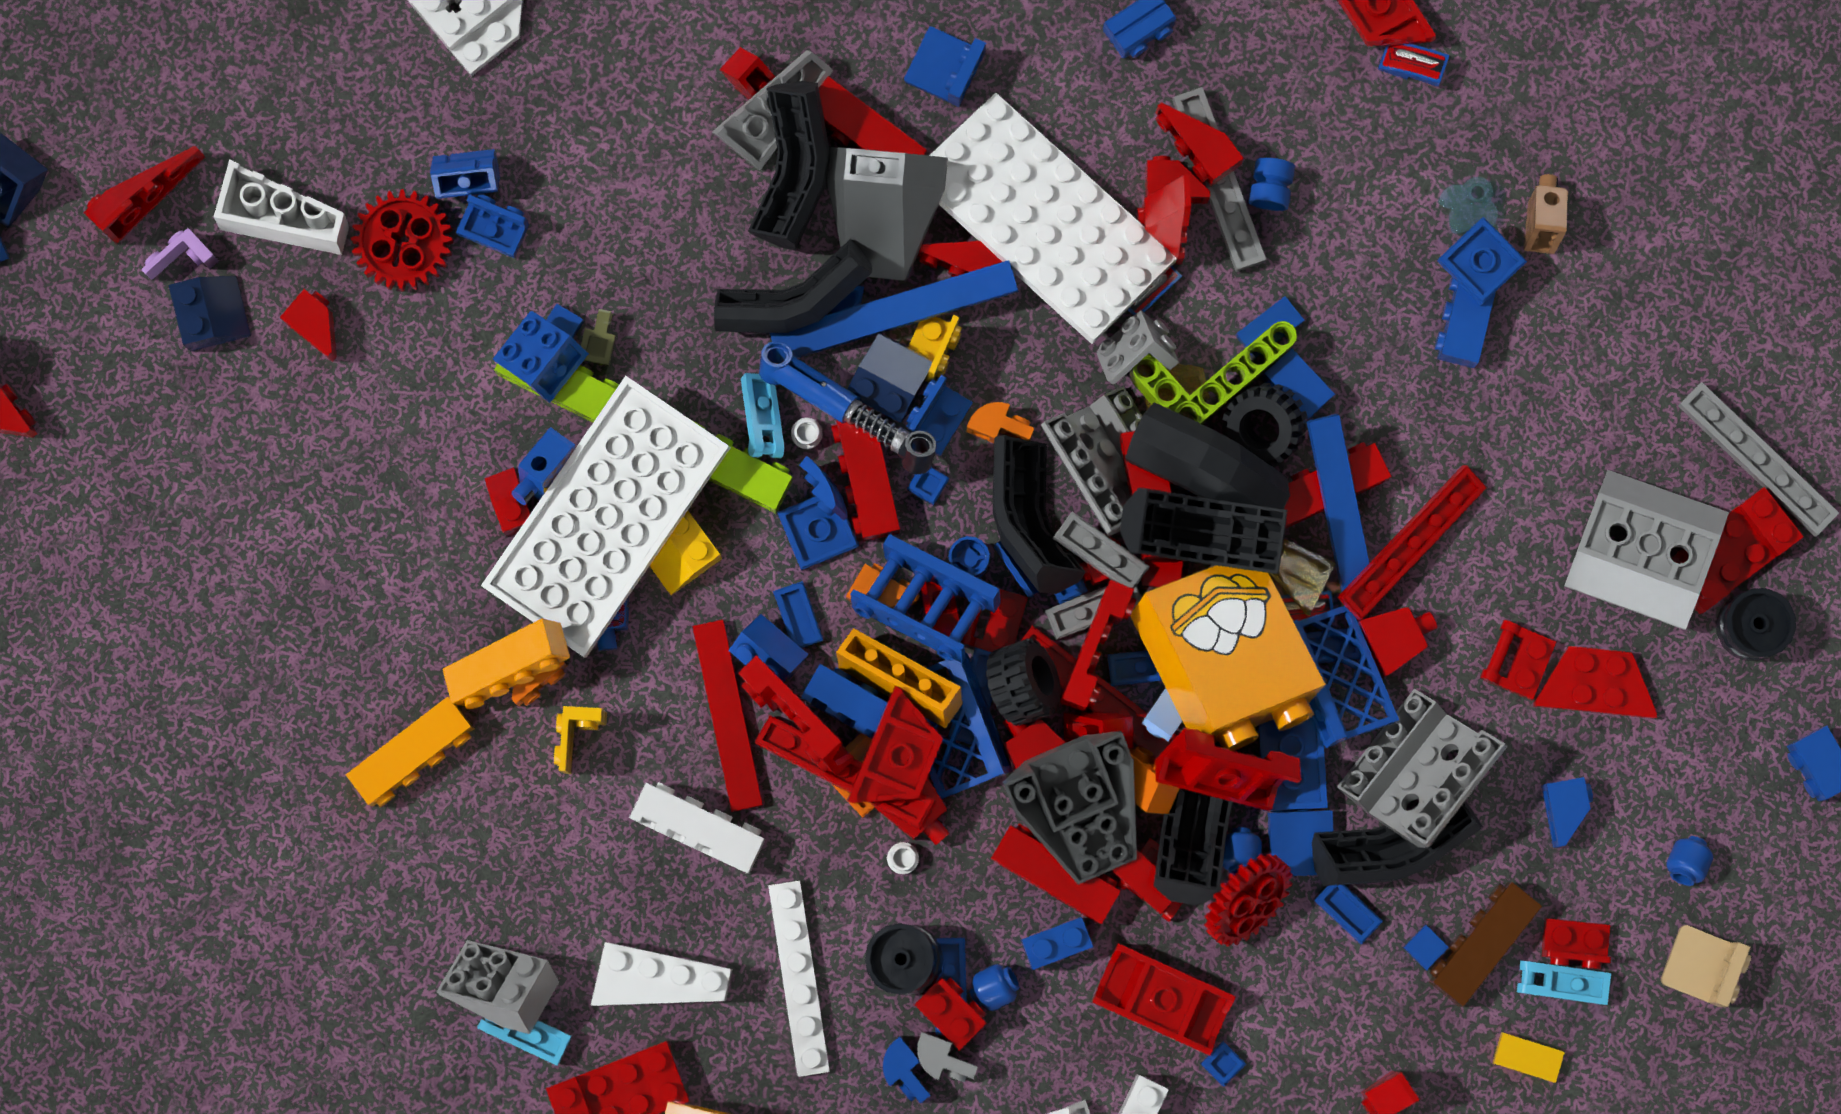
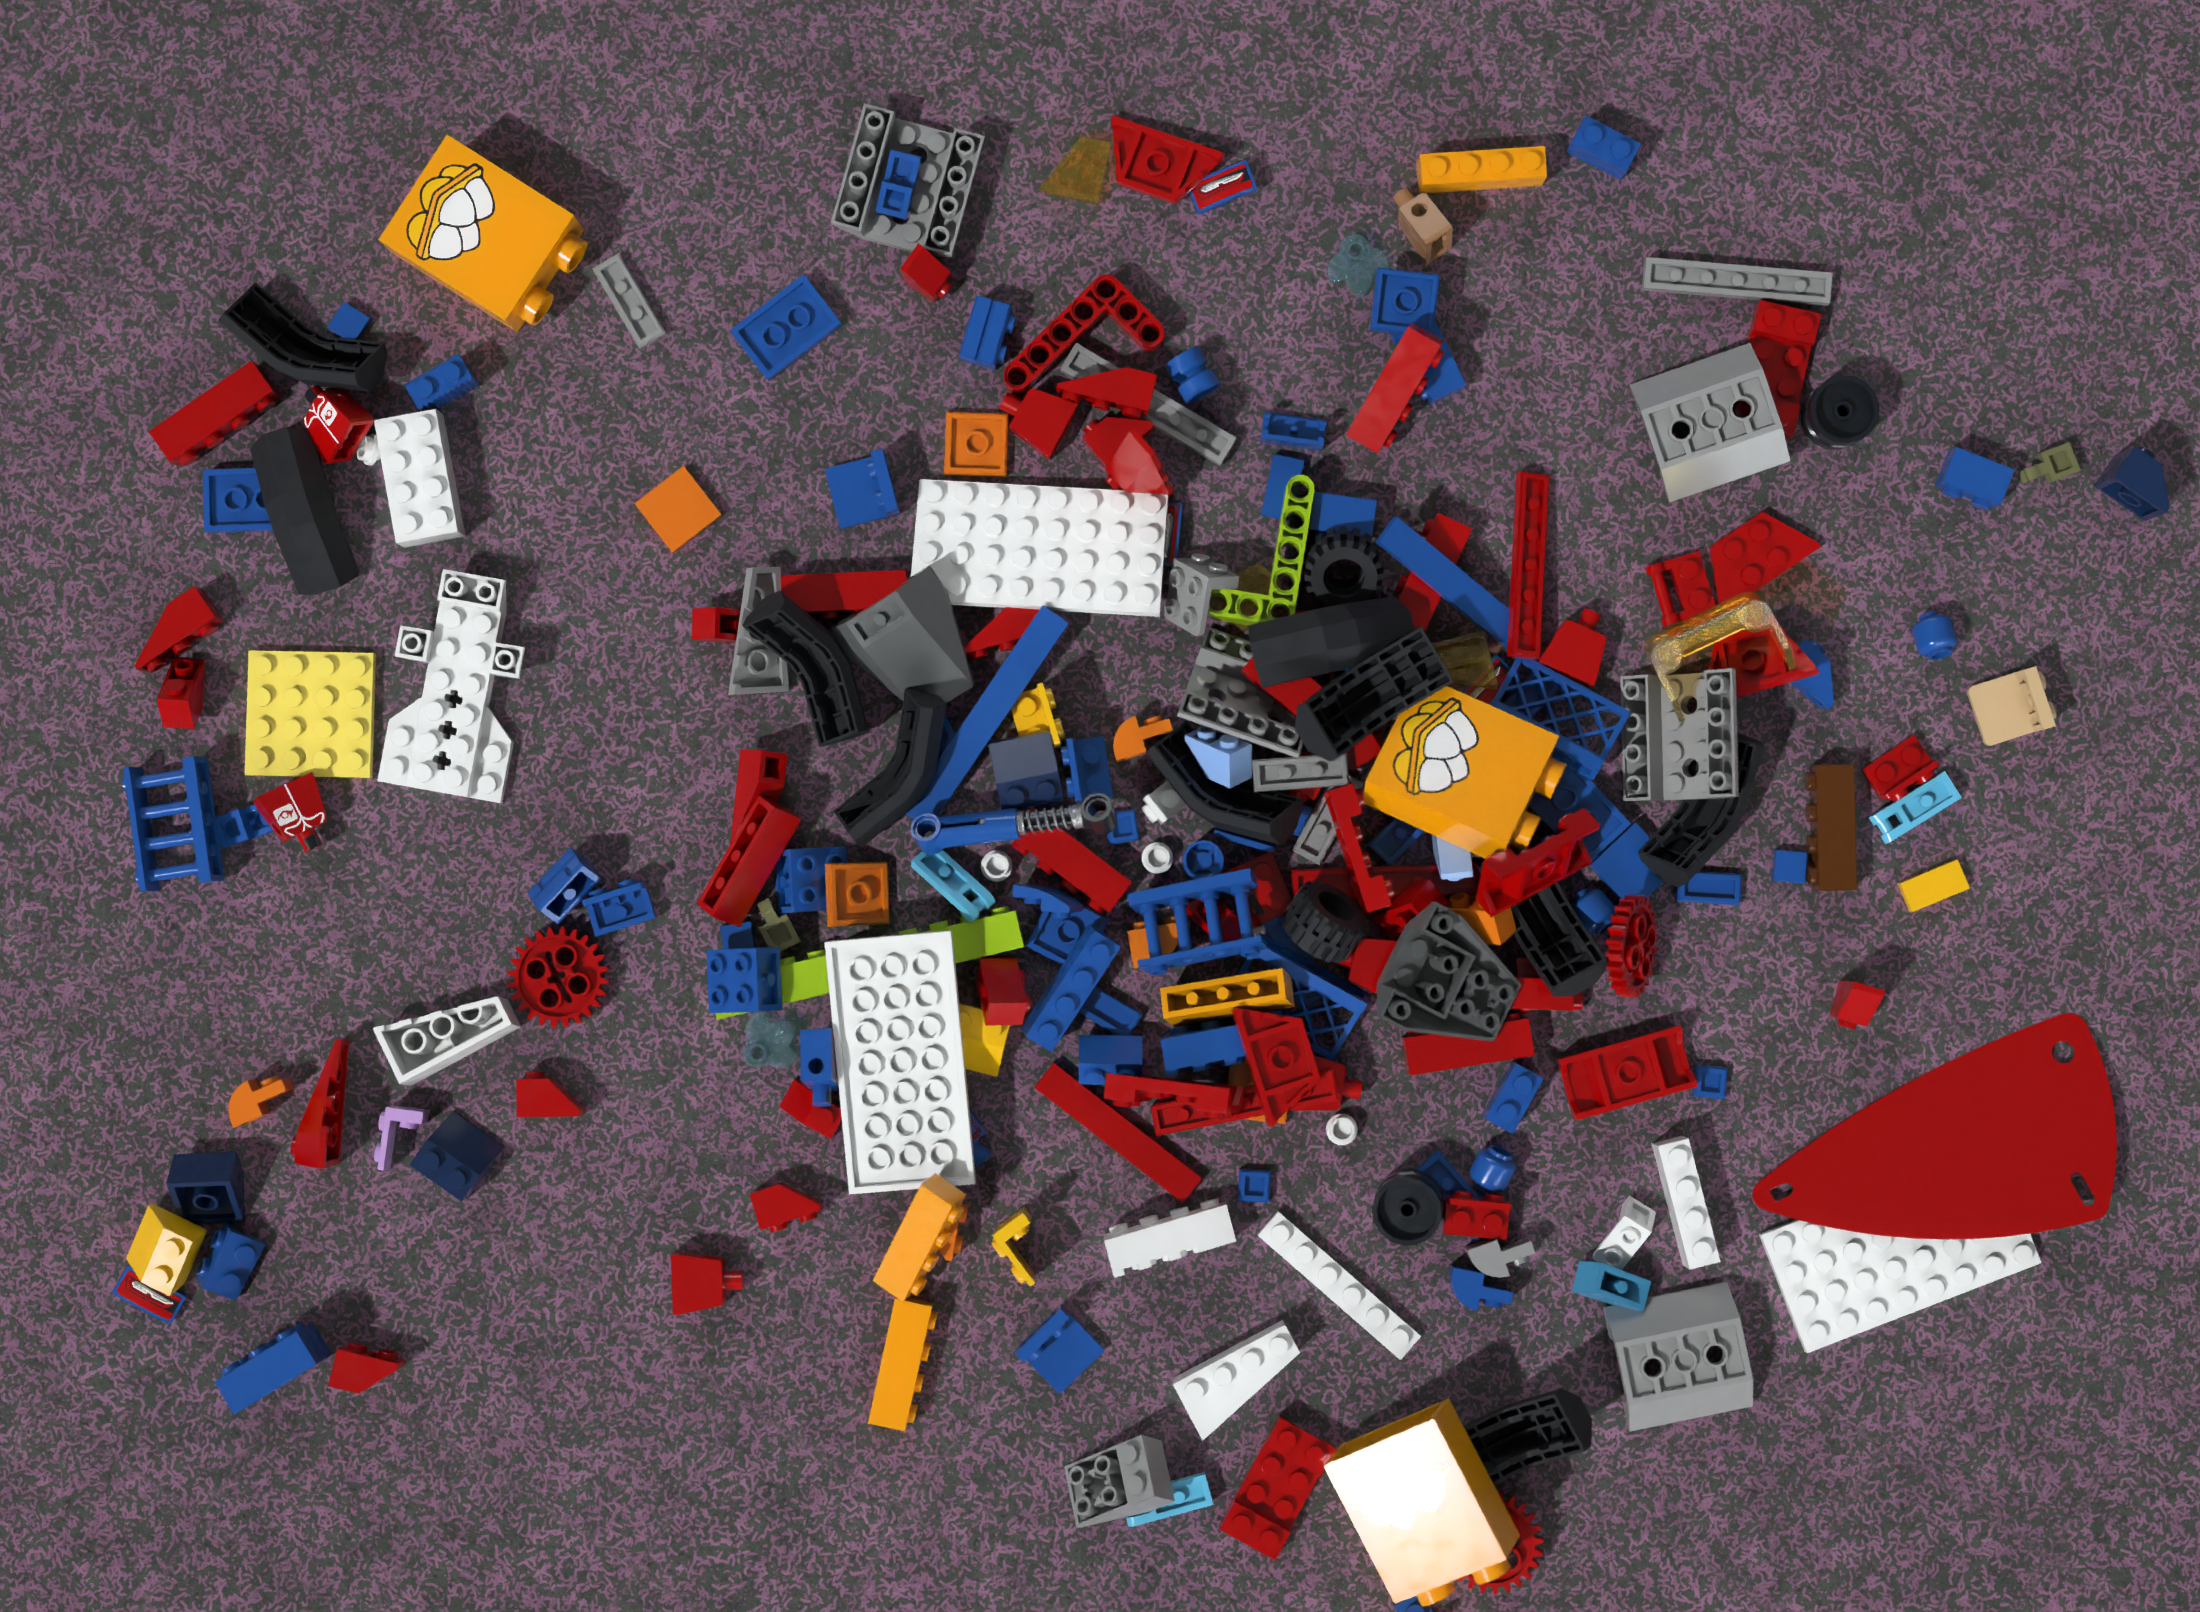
camera: 35 degrees left, 5 degrees up
(91, 139) = (249, 1100): none -> orange brick
(311, 561) = (701, 1281): none -> red torso
(424, 553) = (783, 1203): none -> red slope
(523, 422) = (772, 1039): none -> clear light blue plate
(540, 844) = (1059, 1349): none -> blue bracket
(620, 270) = (748, 861): none -> red brick
(657, 326) = (802, 878): none -> blue bracket
(670, 225) = (758, 774): none -> red slope
(682, 365) = (857, 894): none -> orange tile
(729, 529) = (1002, 991): none -> red brick
(784, 571) = (1070, 988): none -> blue brick
(798, 845) = (1254, 1185): none -> blue tile
(935, 529) = (1157, 857): none -> white plate
(974, 491) = (1162, 803): none -> white bracket
(1050, 489) = (1221, 755): none -> light blue slope
(1061, 102) = (976, 444): none -> orange tile
(1126, 122) = (1039, 419): none -> red torso
(1214, 79) = (1079, 327): none -> red beam
(1314, 291) = (1293, 431): none -> blue hinge
(1421, 319) = (1395, 387): none -> red brick
(1508, 705) = (1669, 647): none -> clear yellow windscreen
(1535, 763) = (1759, 661): none -> red wing
(1627, 211) = (1481, 169): none -> light orange brick
(1736, 271) = (1603, 147): none -> blue brick

